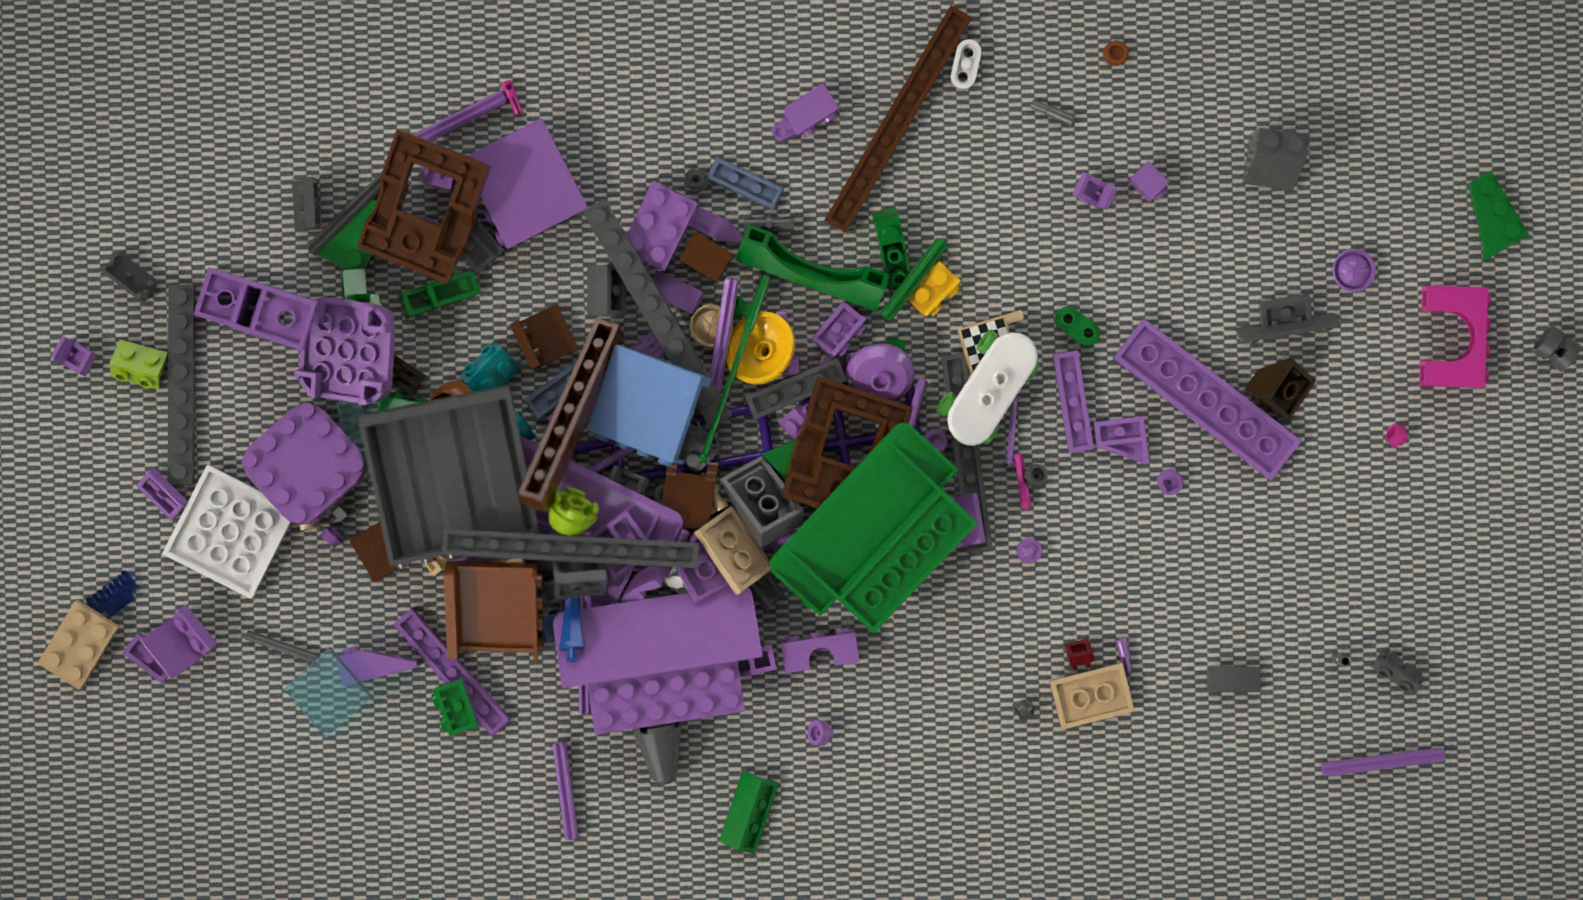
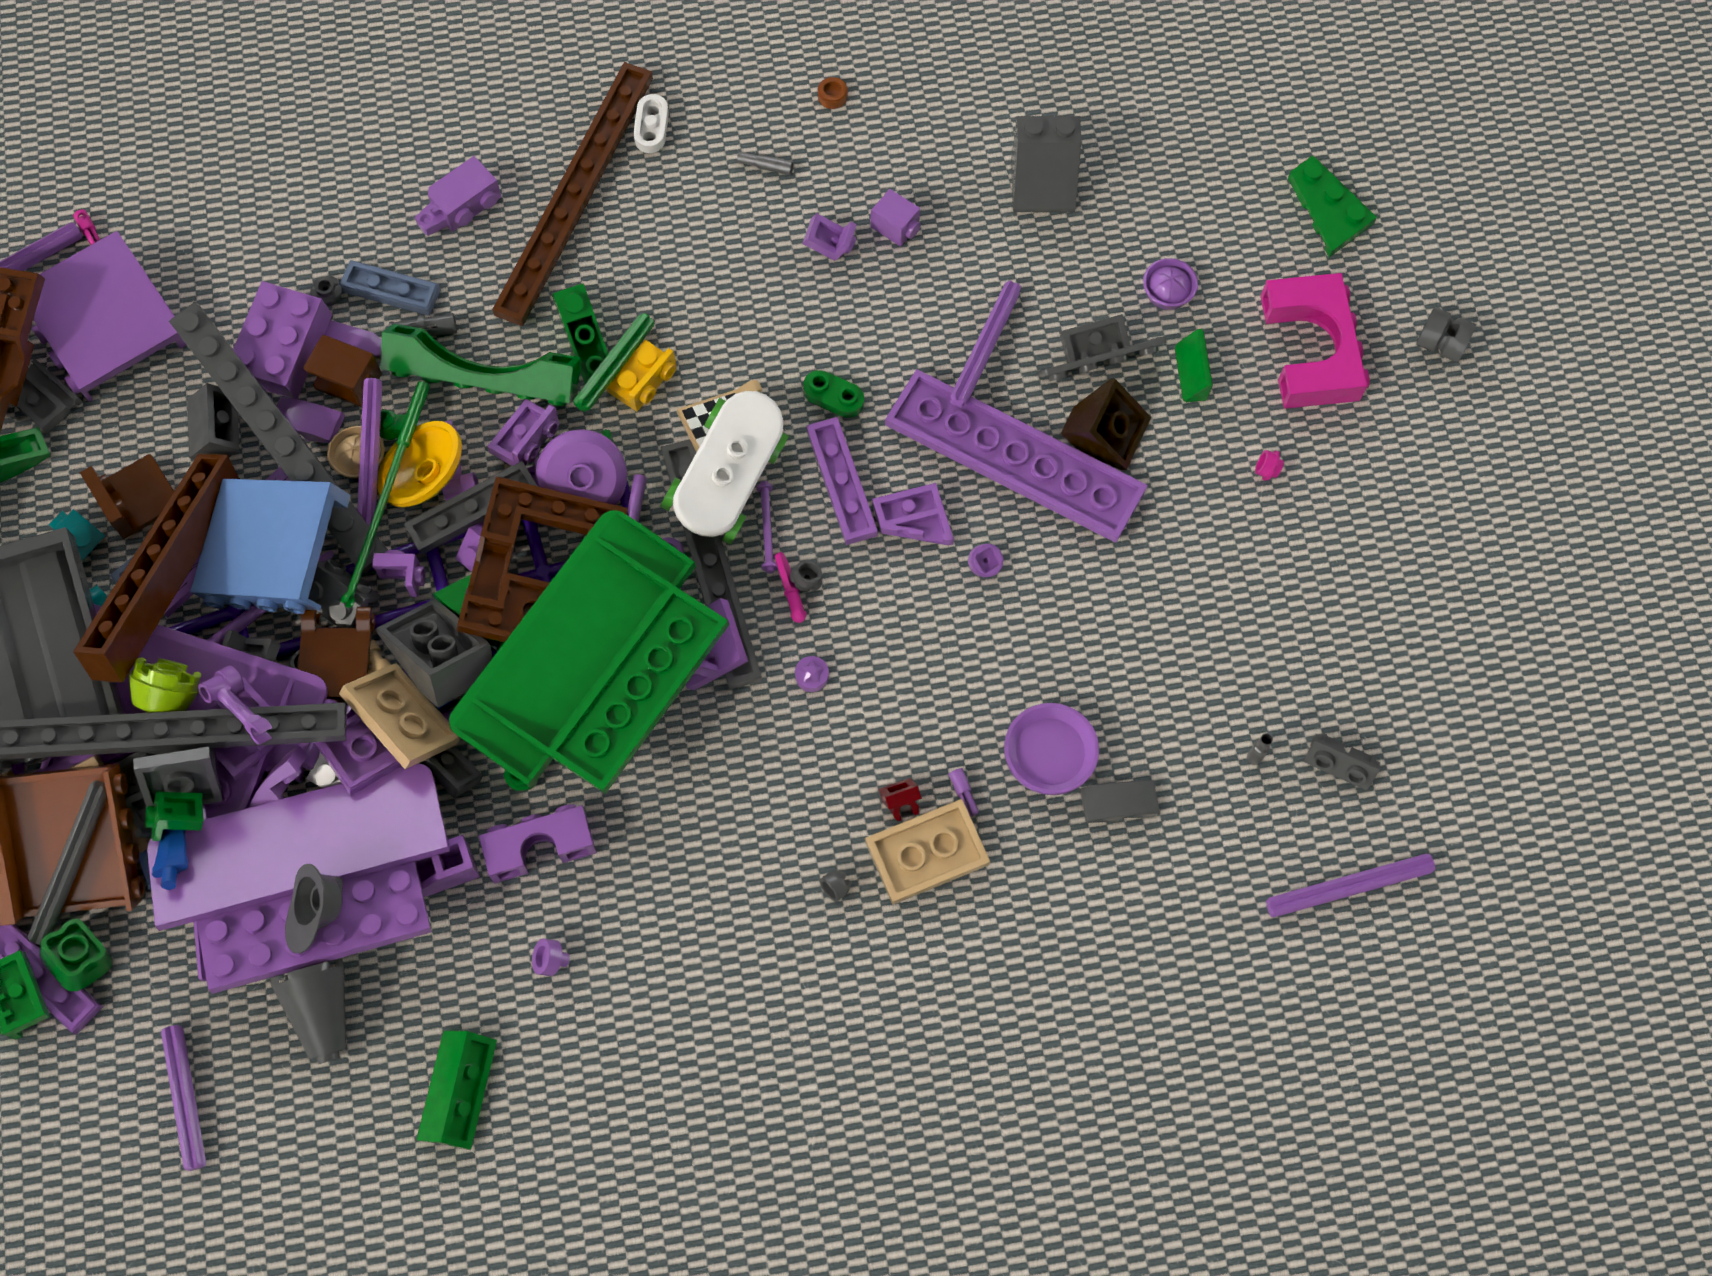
camera: 10 degrees left, 20 degrees down
(495, 684) = (74, 955): none -> green piece
(497, 624) = (69, 862): none -> dark grey axle
(575, 606) = (174, 812): none -> green bracket
(614, 522) = (224, 687): none -> medium lavender brick
(668, 692) = (313, 906): none -> dark grey piece
(737, 426) = (398, 565): none -> medium lavender bracket
(1192, 636) = (1051, 749): none -> medium lavender piece
(1201, 304) = (985, 344): none -> medium lavender axle
(1356, 345) = (1194, 367): none -> green slope

